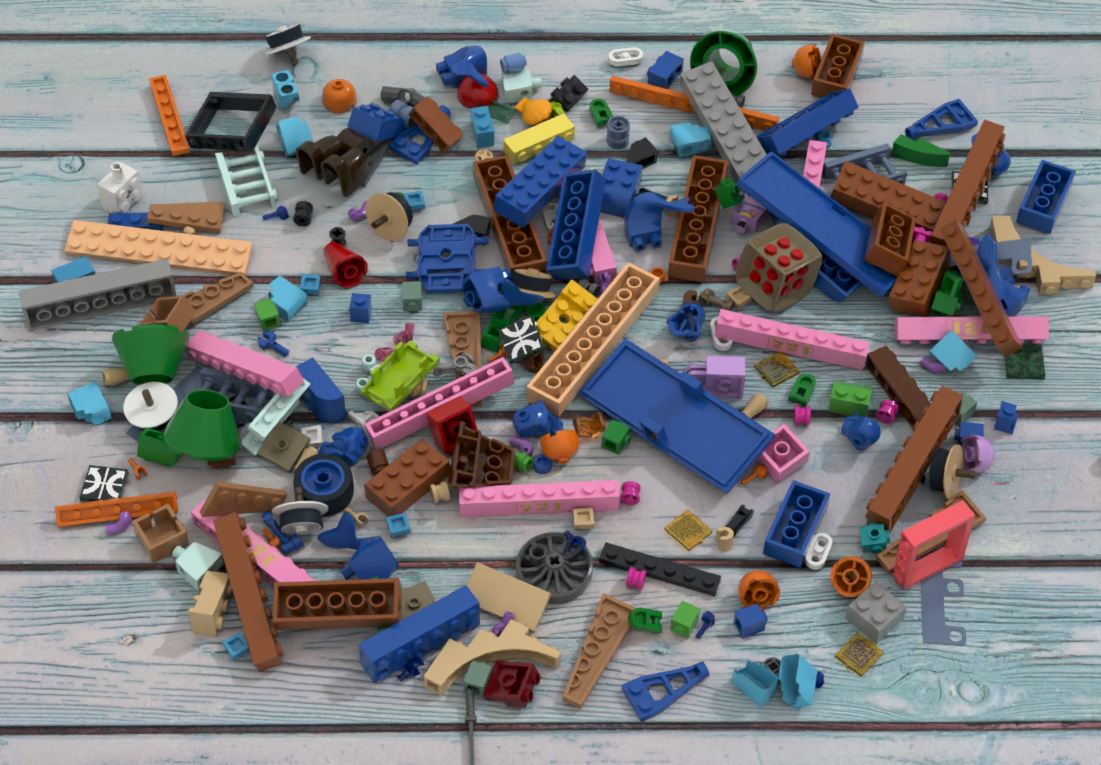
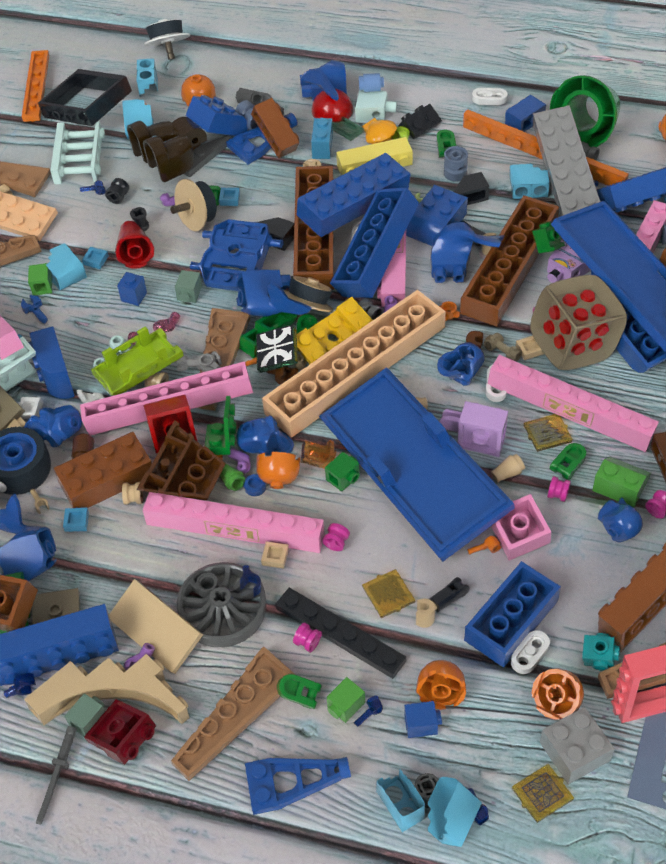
camera: 20 degrees right, 0 degrees up
(500, 426) = (222, 436): none -> green bracket

